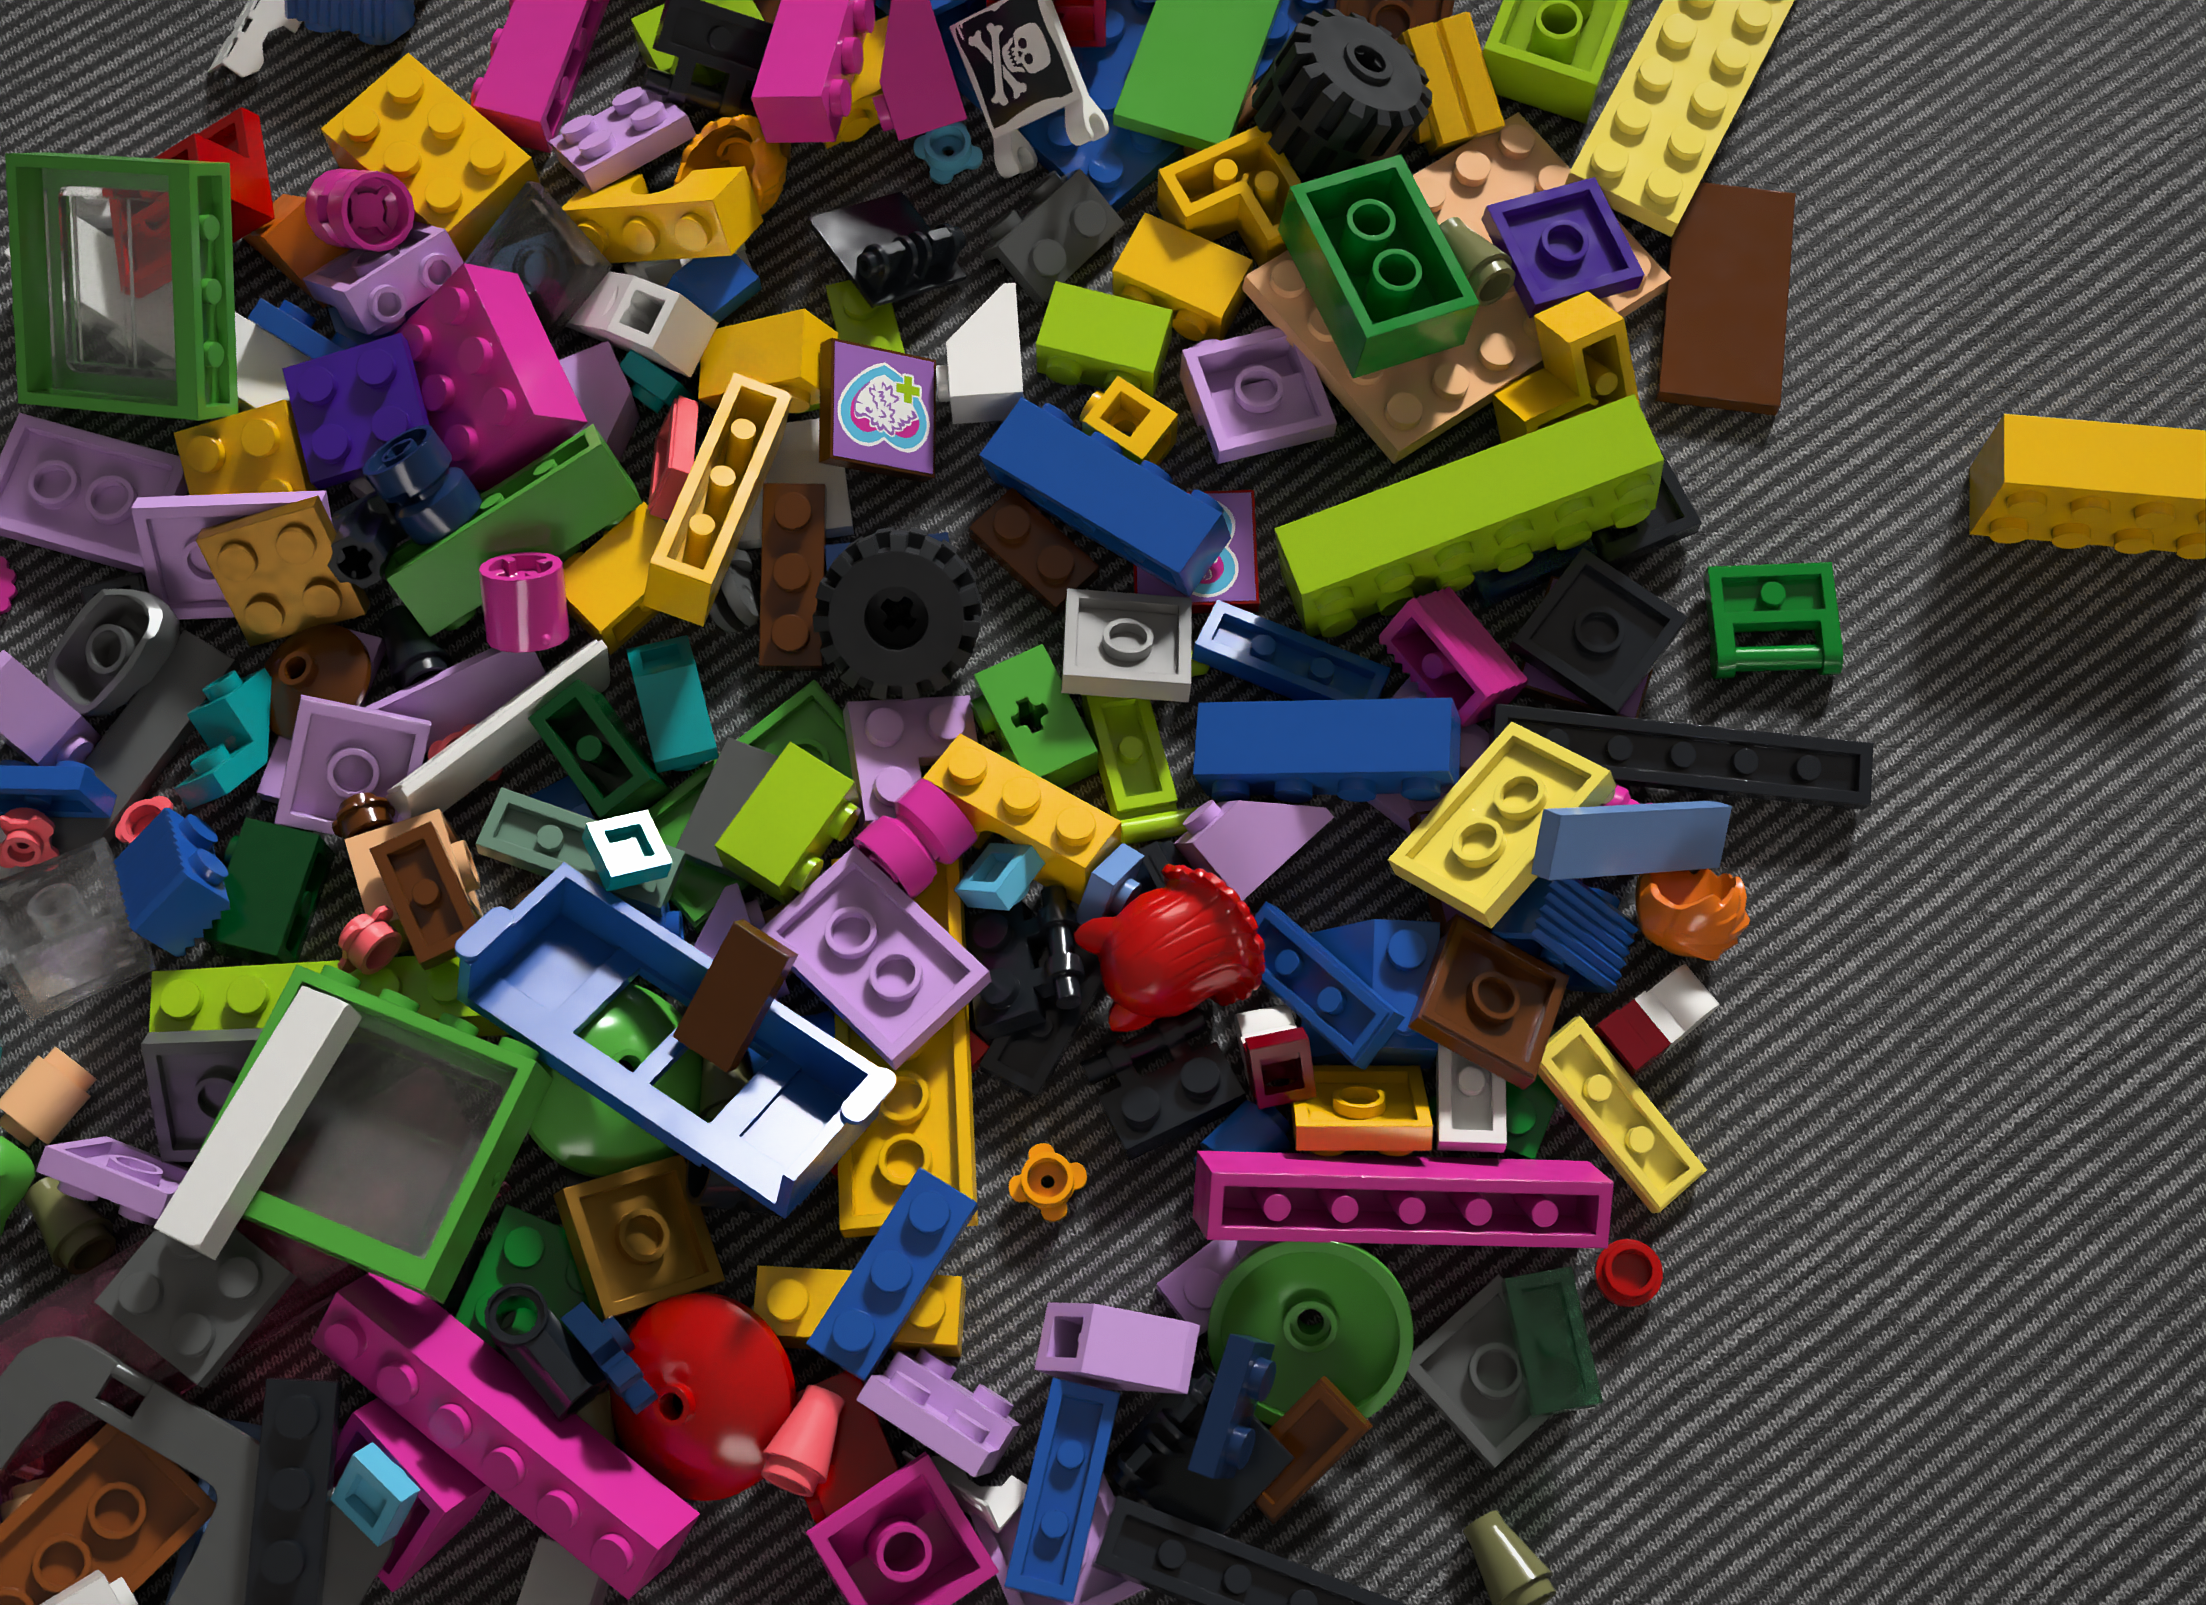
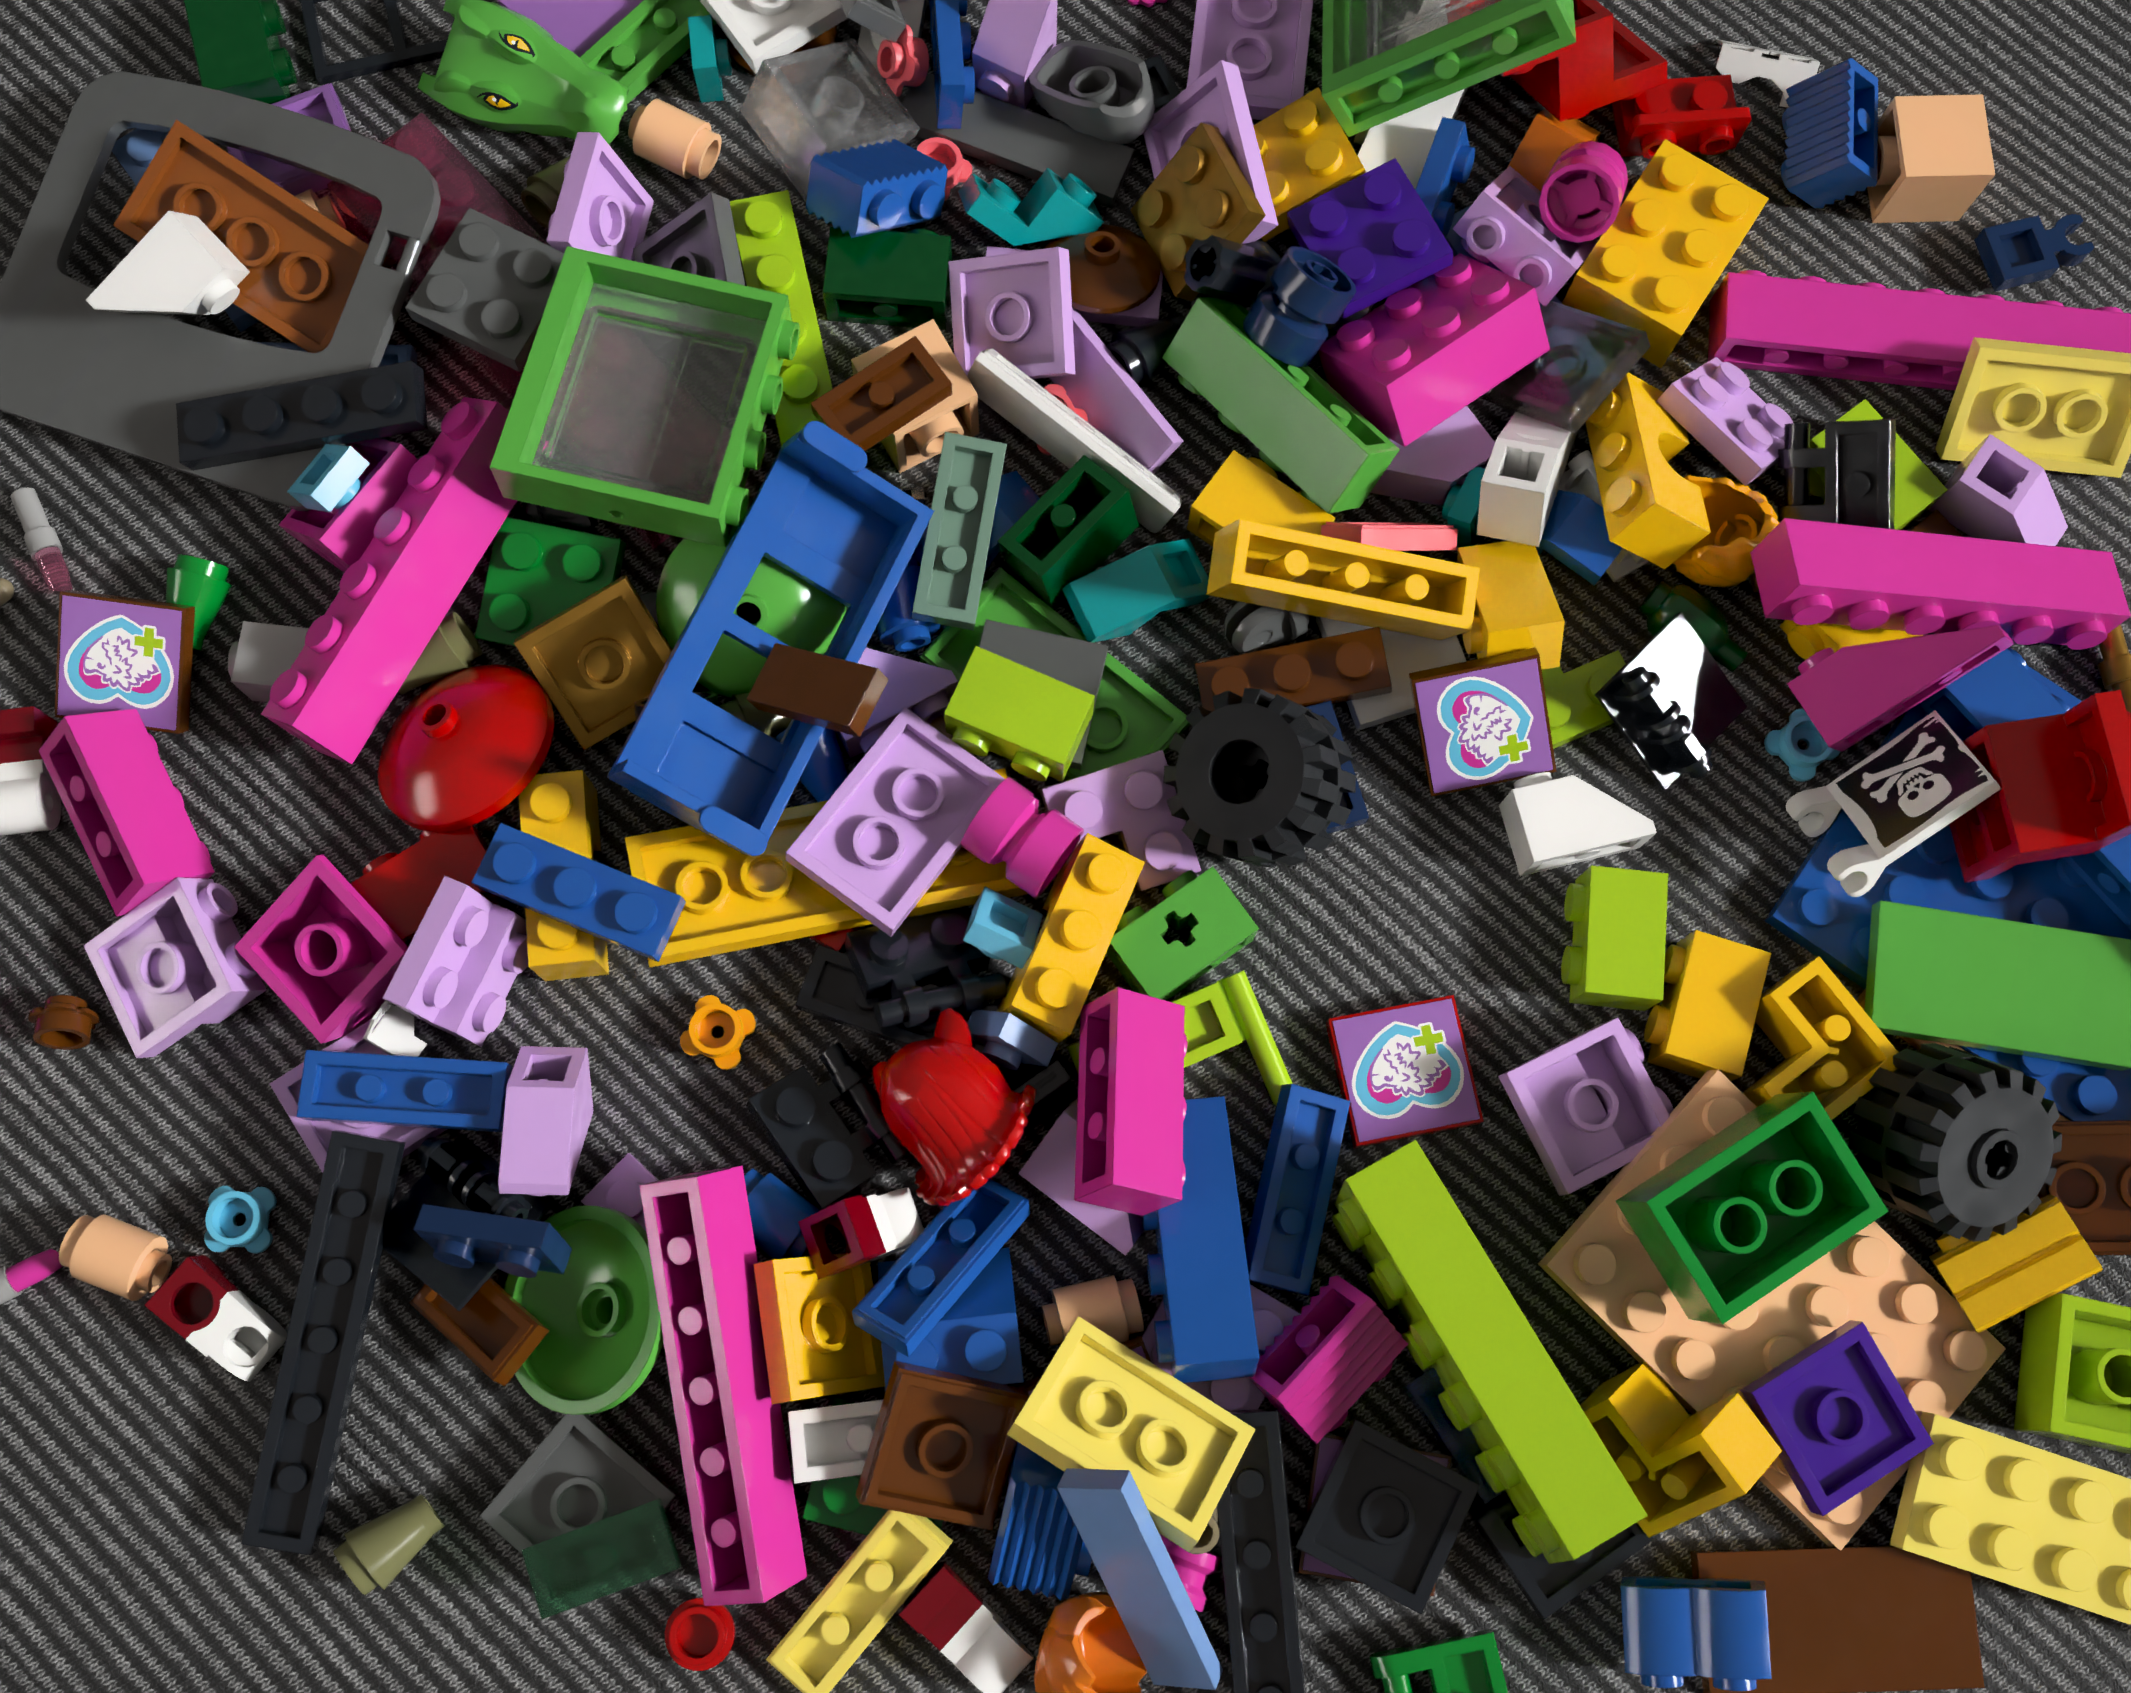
camera: 75 degrees right, 5 degrees up
(258, 1122) = (629, 294): white slope -> none
(292, 115) = (1685, 111): none -> red bracket
(362, 814) = (964, 333): reddish brown plate -> none
(369, 942) = (831, 357): coral plate -> none
(524, 602) = (1202, 427): dark pink piece -> none
(546, 1353) = (470, 598): black piece -> none
(609, 1349) = (479, 649): dark blue plate -> none
(626, 850) = (955, 565): plate -> none
(792, 234) = (1701, 614): none -> dark green plant
(804, 1444) = (413, 841): coral cone -> none
(1033, 550) = (1371, 909): reddish brown plate -> none
(1052, 233) = (1732, 865): dark grey bracket -> none
(1106, 495) = (1436, 967): blue brick -> none
(1127, 645) = (1274, 1014): light grey plate -> none
(1131, 410) = (1542, 962): yellow brick -> none
(1197, 774) = (1130, 1103): none -> dark pink brick
(1372, 877) = (1101, 1302): none -> light nougat brick
(1483, 263) = (1788, 1318): olive cone -> none
(1725, 400) = (1696, 1630): none -> blue brick

